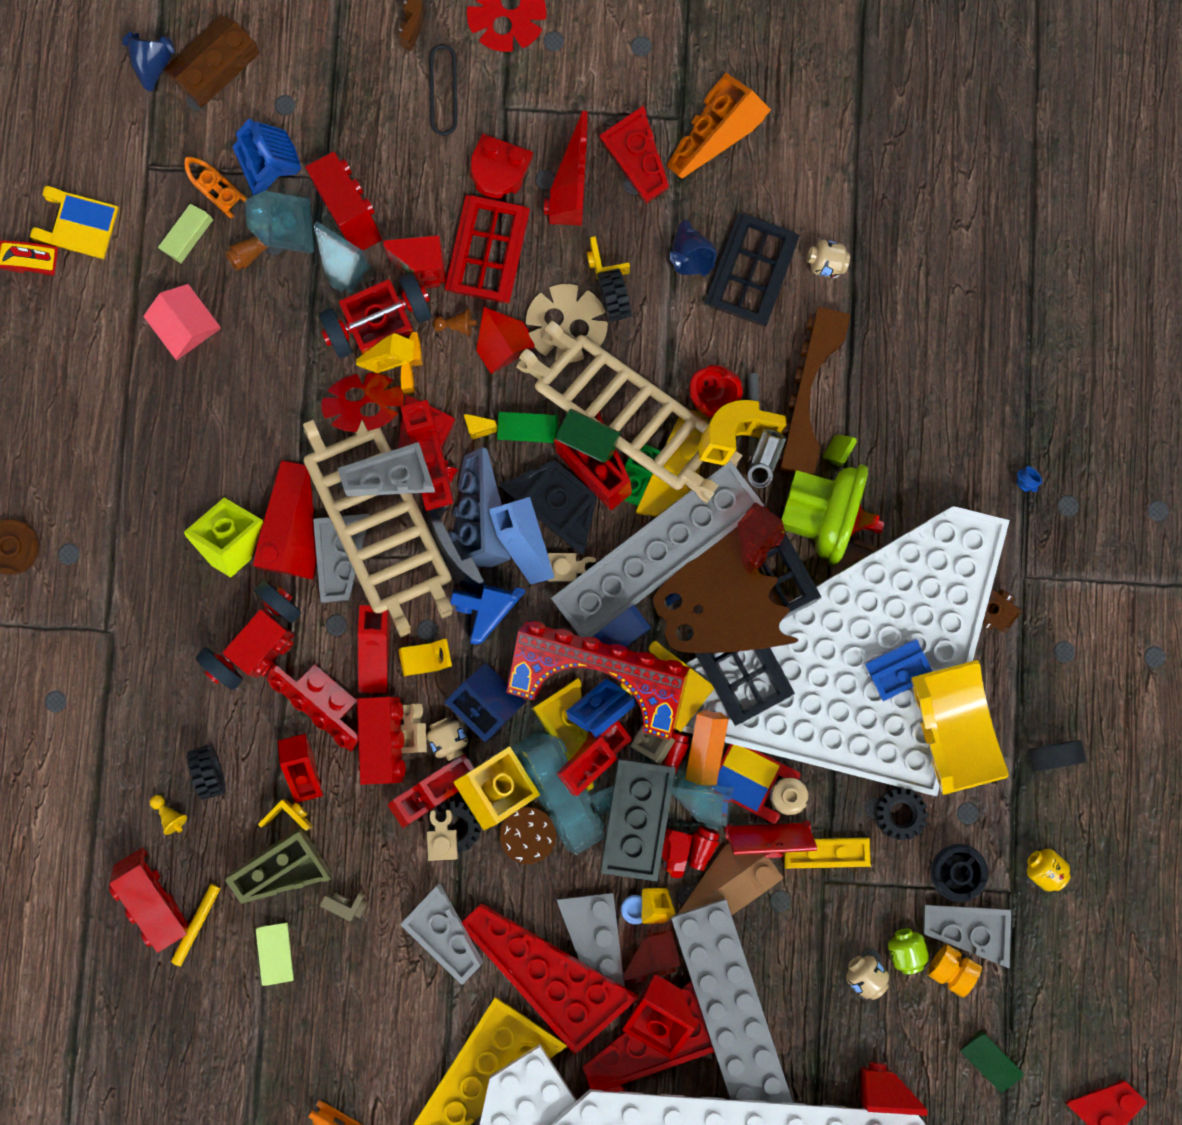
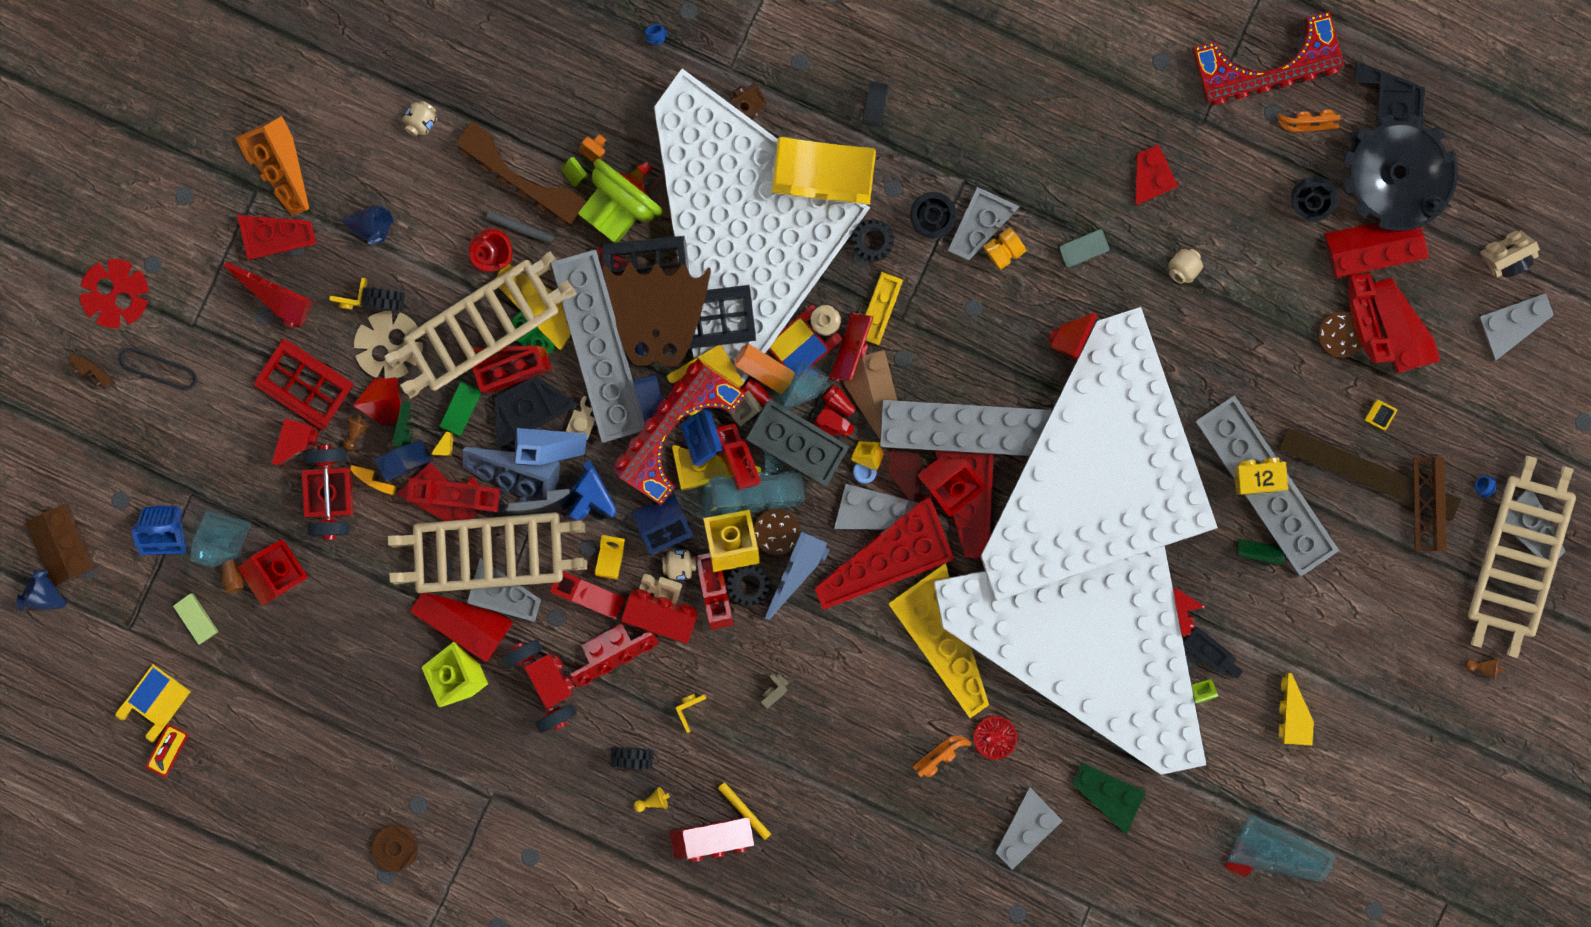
camera: 65 degrees left, 5 degrees up
(180, 320) = (266, 648): coral slope -> none
(209, 180) = (161, 583): orange piece -> none
(267, 294) = (272, 572): none -> red slope
(274, 954) = (790, 758): yellowish green slope -> none
(279, 868) = (726, 729): olive wedge -> none
(299, 768) = (656, 686): red slope -> none
(341, 259) = (269, 503): clear light blue slope -> none
(344, 200) = (221, 482): red wedge -> none
(374, 393) = (381, 516): red piece -> none
(387, 354) = (361, 493): yellow slope -> none
(388, 473) = (456, 529): light grey wing -> none
(442, 842) = (755, 598): tan plate -> none
(442, 934) = (826, 624): light grey wing -> none
(443, 385) = (403, 460): none -> dark blue slope
(475, 373) = (403, 434): none -> dark green wing
(498, 166) = (240, 349): red slope -> none
(503, 879) = (803, 561): none -> sand blue wedge
(588, 436) = (489, 364): dark green slope -> none
(732, 420) = (519, 245): yellow arch -> none
(758, 533) = (616, 264): clear red slope -> none
(766, 457) = (558, 232): flat silver piece -> none
(775, 279) = (388, 196): black piece -> none
(867, 977) = (984, 316): tan head -> none
(874, 459) = (593, 149): none -> orange tile
(894, 669) = (760, 201): blue plate -> none
(908, 951) = (977, 277): lime head -> none
(1048, 870) = (958, 146): yellow head -> none

